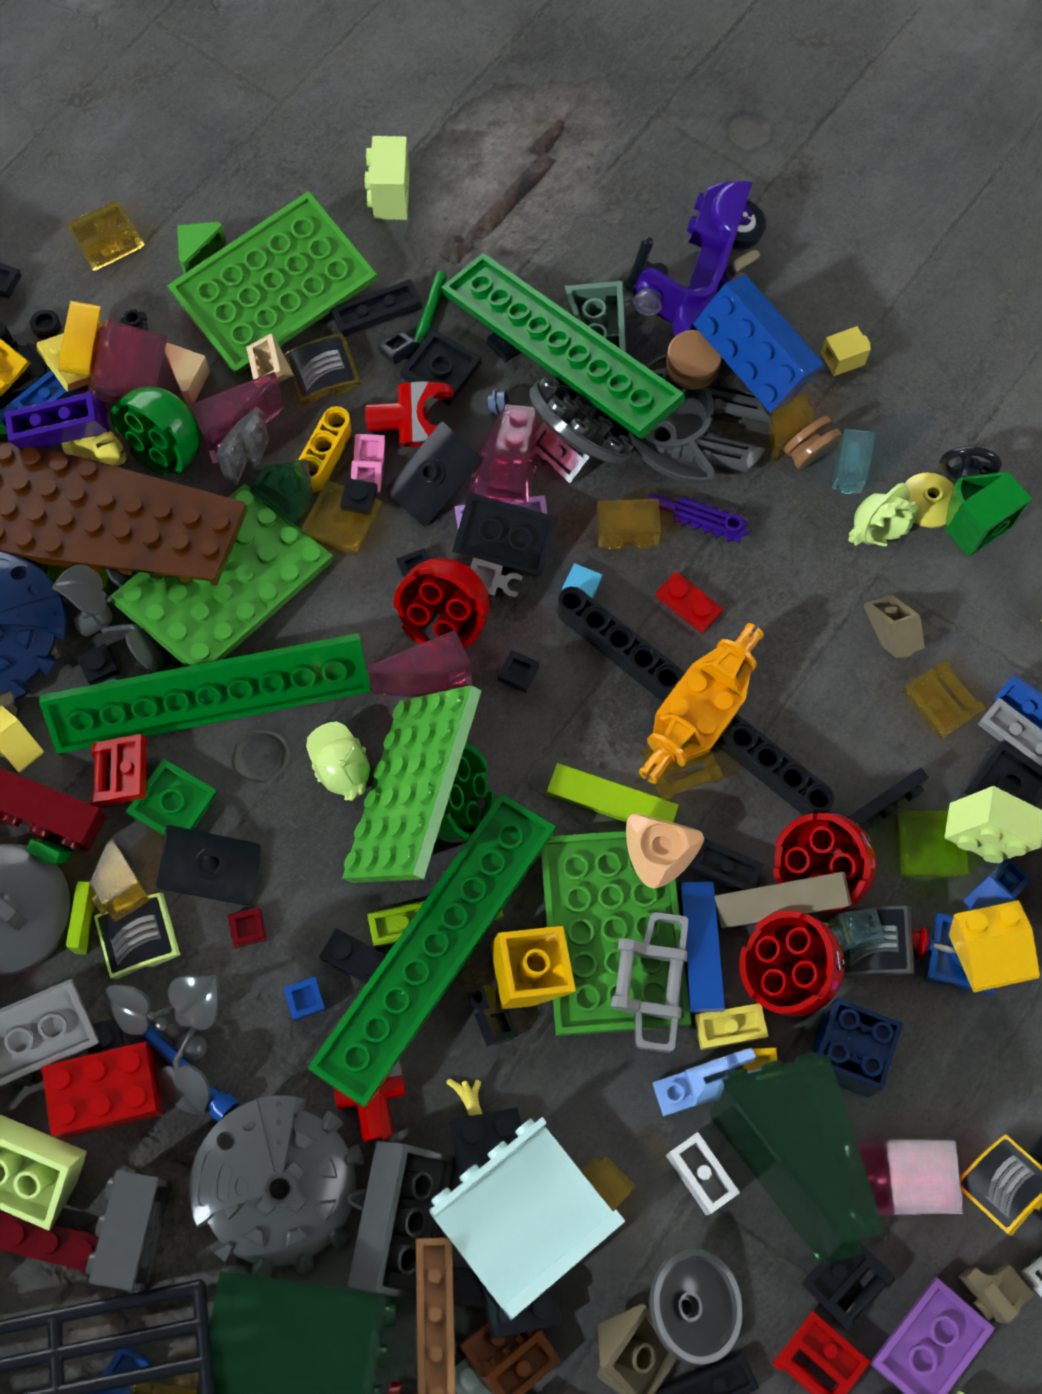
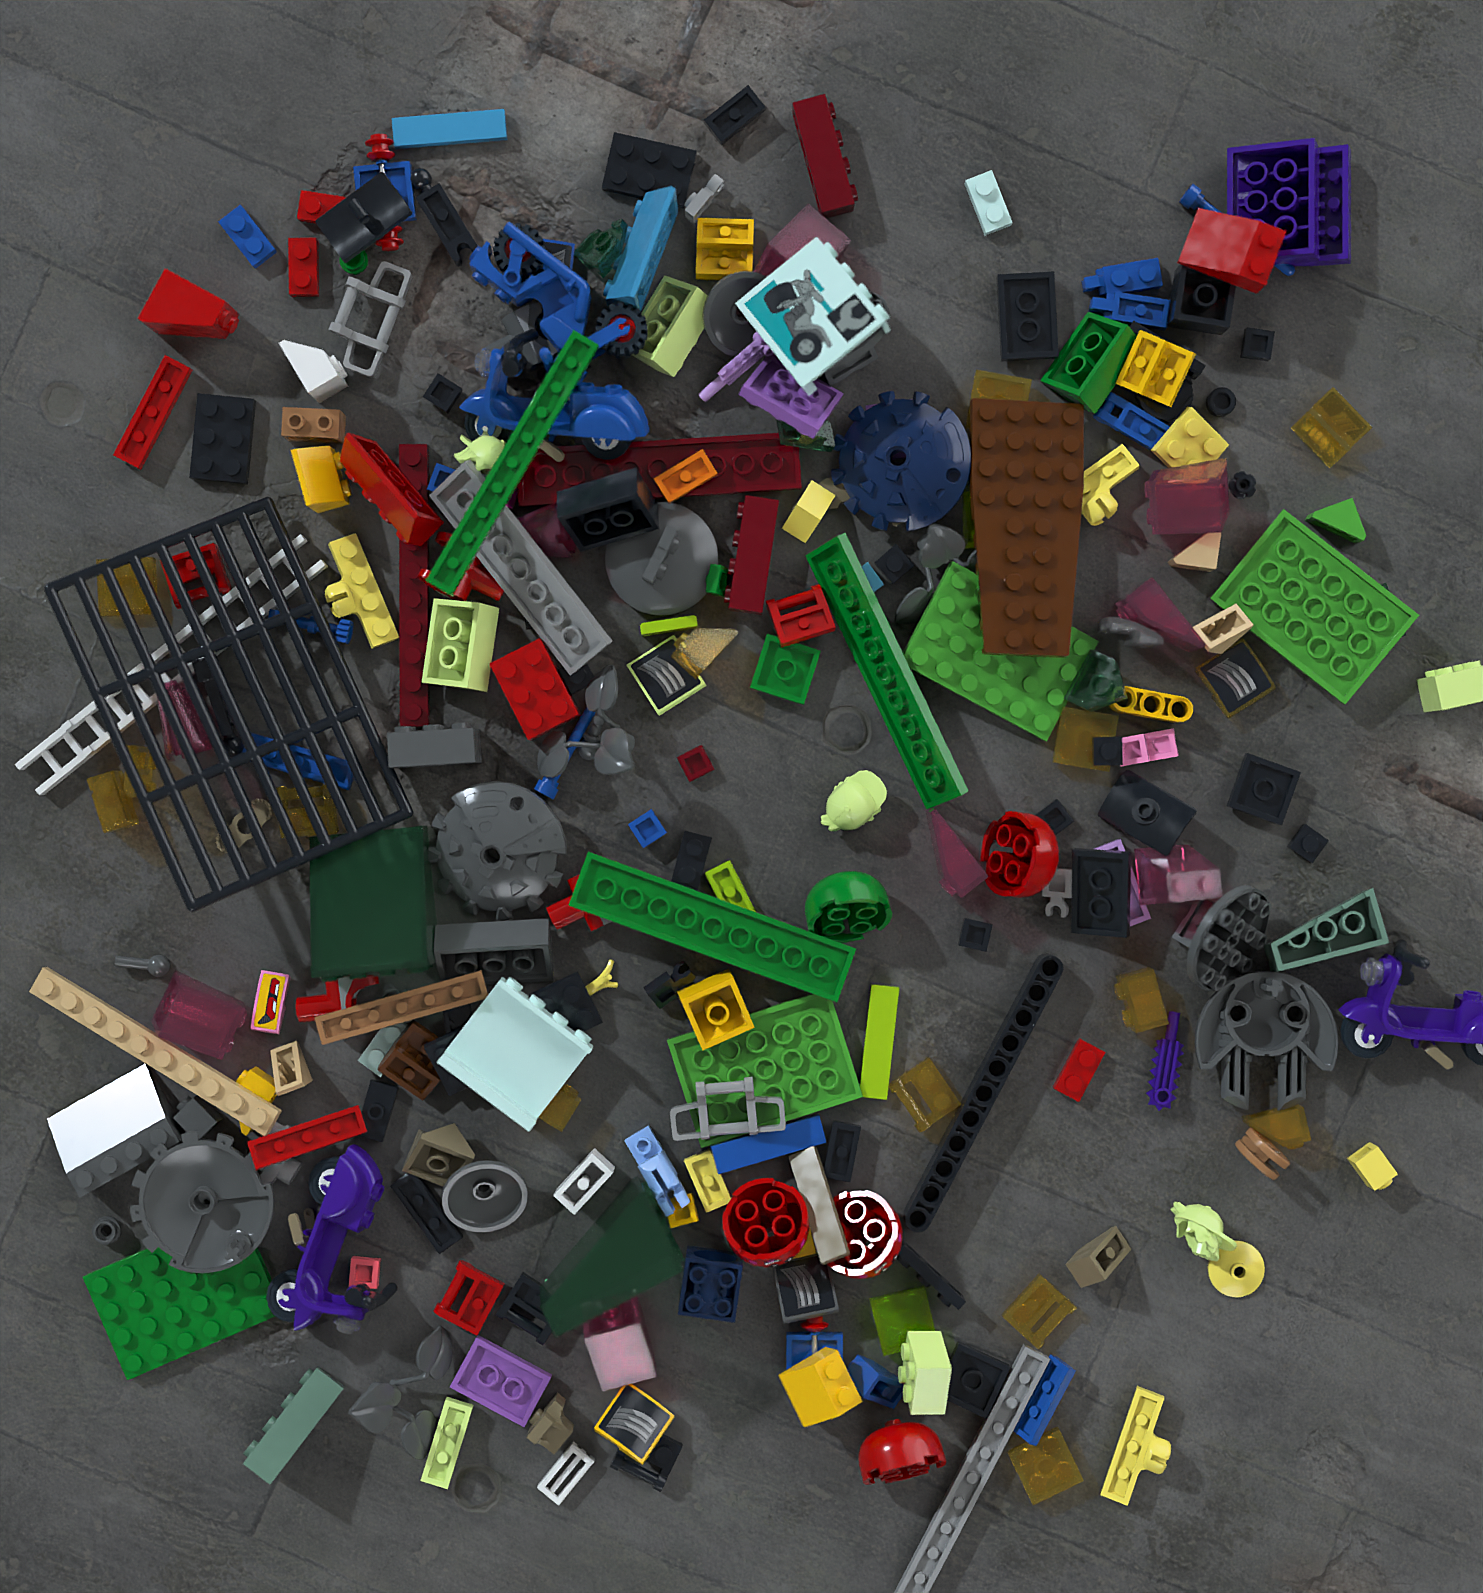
camera: 80 degrees right, 20 degrees up
(57, 421) = (1110, 457): dark purple brick -> none
(79, 338) = (1203, 448): yellow beam -> none
(158, 429) = (1127, 551): green cylinder -> none
(208, 865) = (736, 719): black shield -> none
(376, 307) = (1313, 711): black plate -> none
(397, 347) = (1275, 743): black tile -> none
(410, 412) = (1203, 773): red connector -> none
(411, 787) = (840, 875): bright green plate -> none
(430, 307) = (1325, 761): green bar -> none
(497, 401) = (1238, 852): sand blue plate -> none
(564, 346) = (1304, 901): green plate -> none
(583, 579) = (1075, 970): medium azure tile -> none
(660, 848) = (841, 1093): light nougat hat -> none
(692, 360) = (1319, 1028): medium nougat head -> none
(702, 704) = (975, 1104): light orange plate -> none
(758, 343) = (1340, 1088): blue brick -> none
(852, 461) = (1250, 1193): clear light blue slope -> none
(857, 928) = (808, 1270): clear light blue bracket -> none
(982, 501) = (1233, 1316): green piece -> none

